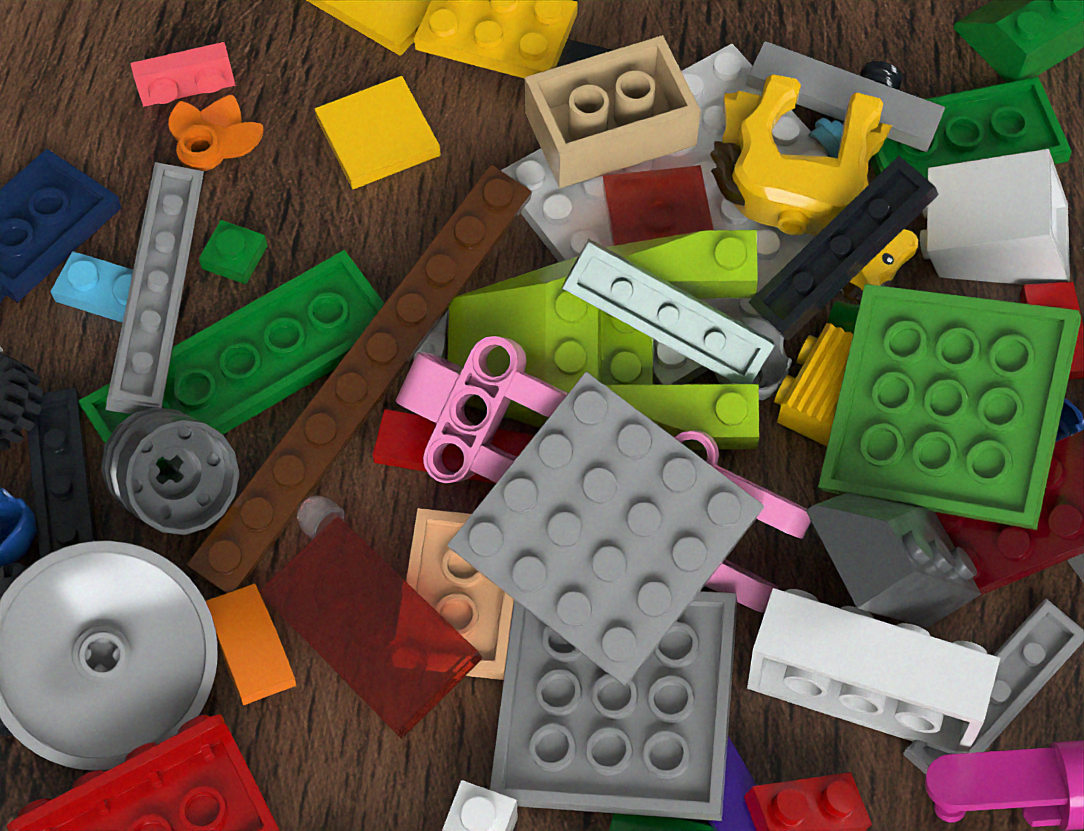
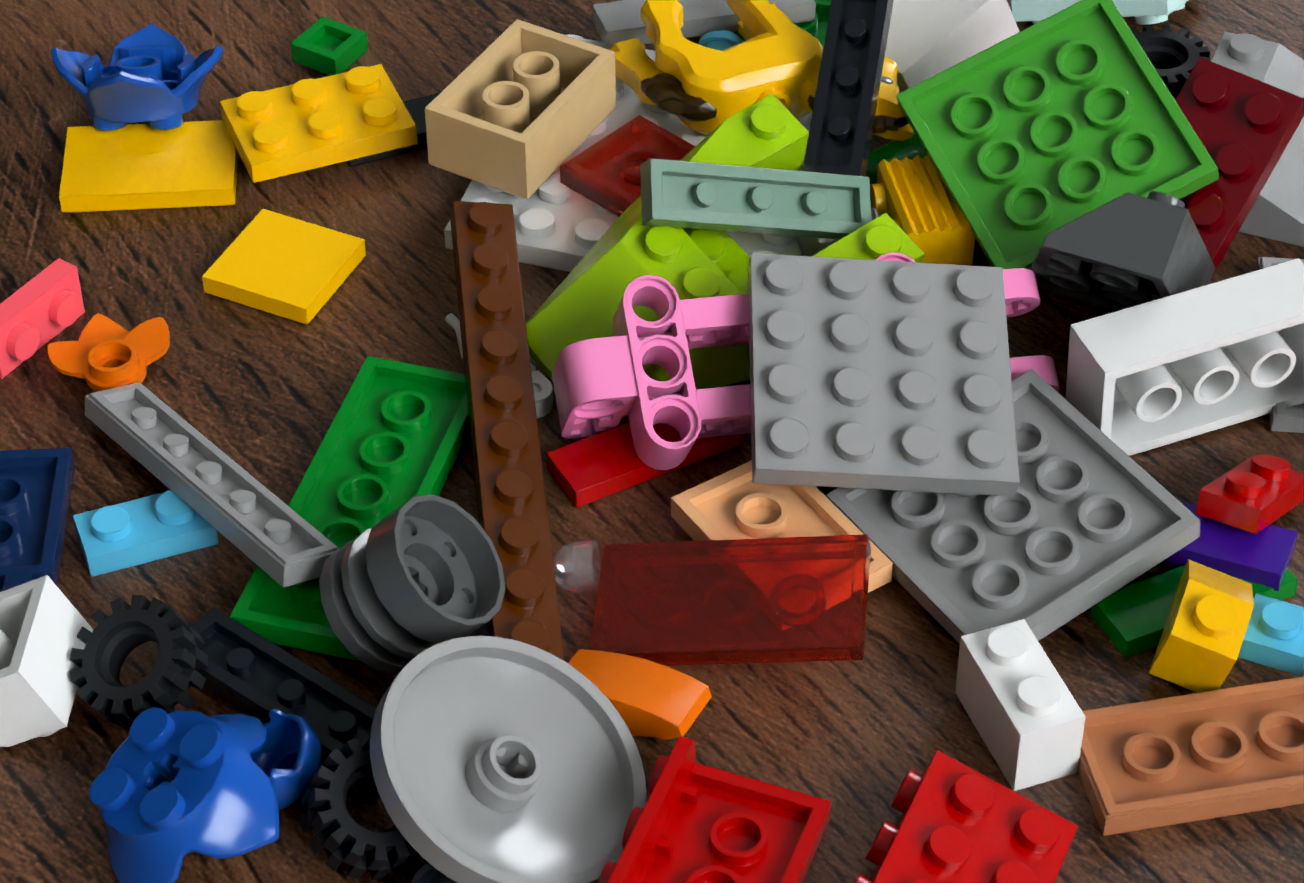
camera: 40 degrees left, 20 degrees down
(233, 252) = (245, 428): green plate -> none

